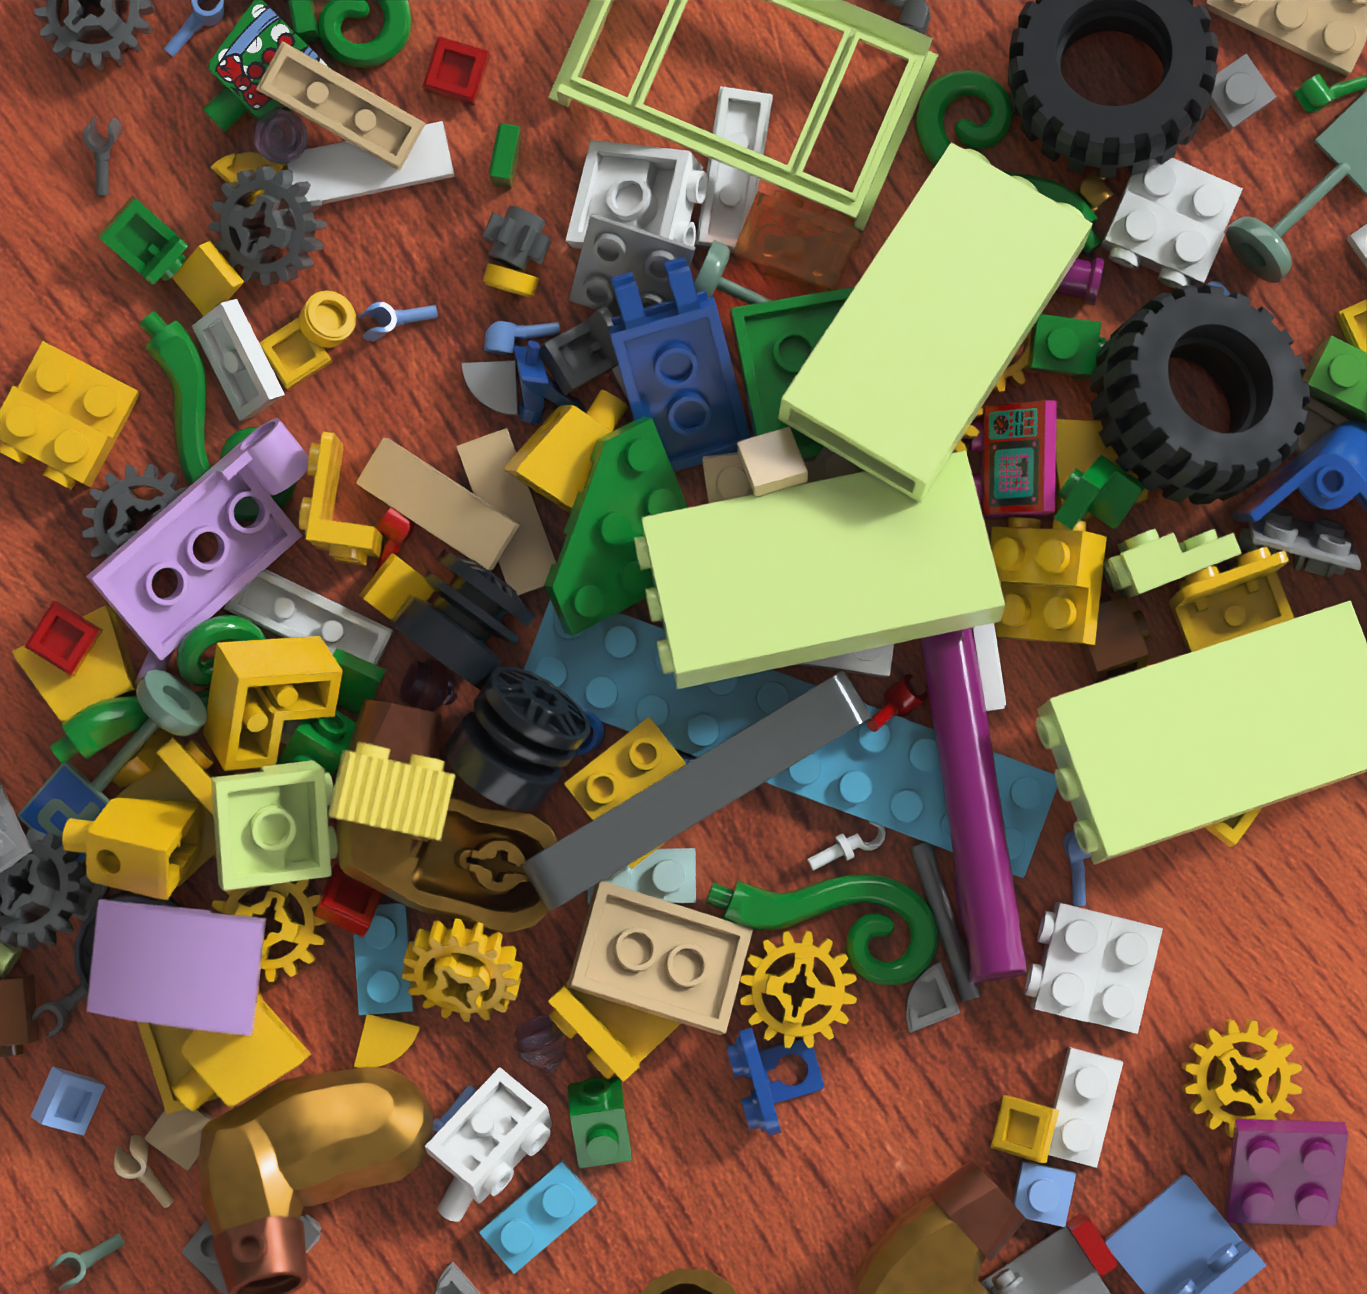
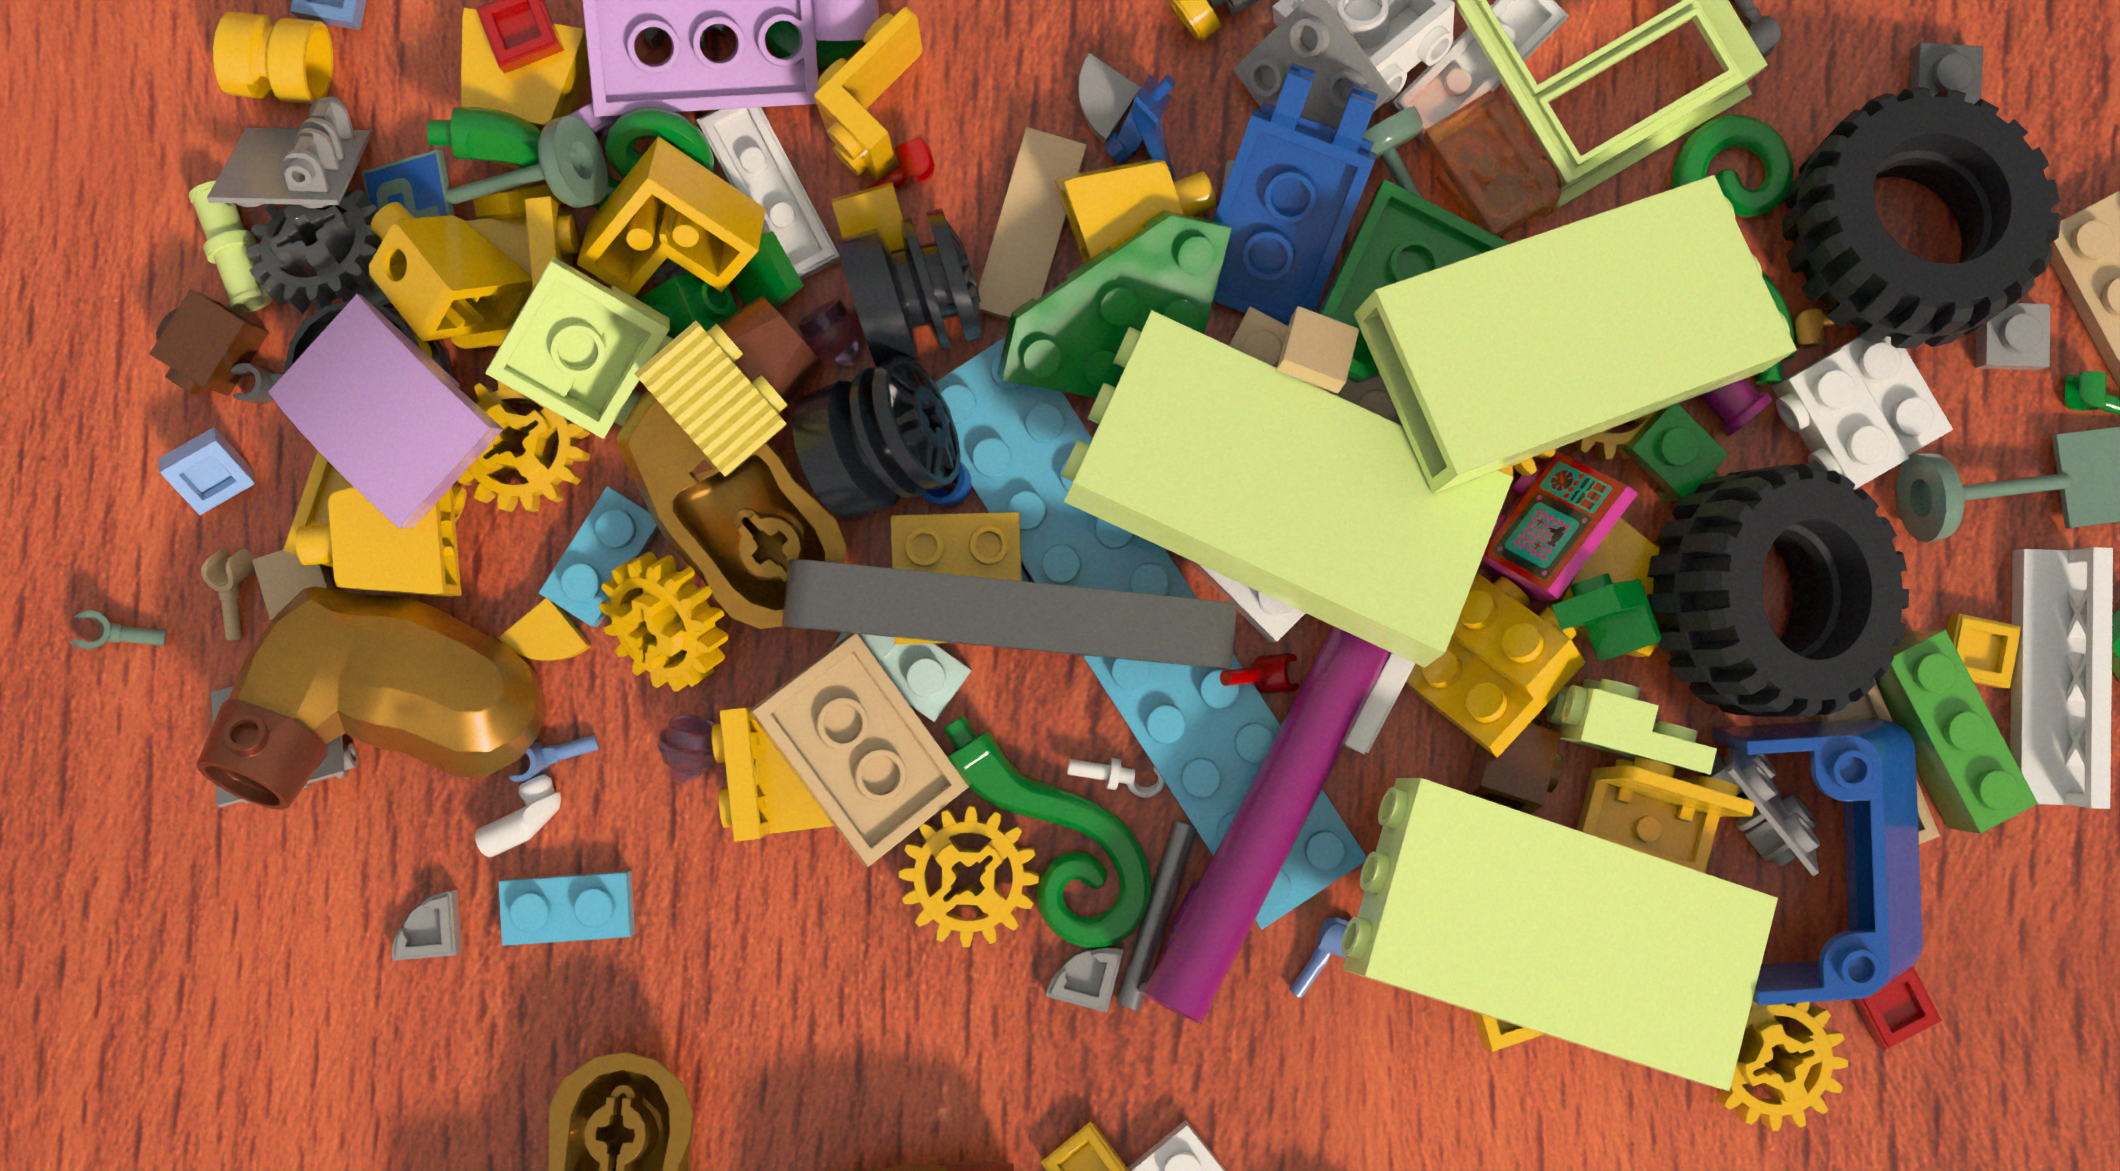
camera: 40 degrees right, 0 degrees up
(347, 902) = (602, 479): red tile -> none
(437, 503) = (969, 167): tan tile -> none
(491, 1135) = (575, 799): white bracket -> none
(501, 335) = (1148, 54): medium blue hand -> none
(581, 353) = (1207, 124): dark grey bracket -> none
(599, 1122) = (688, 861): green bracket -> none
(754, 1064) = (874, 915): blue bracket -> none
(1093, 967) = (1265, 1063): white plate -> none

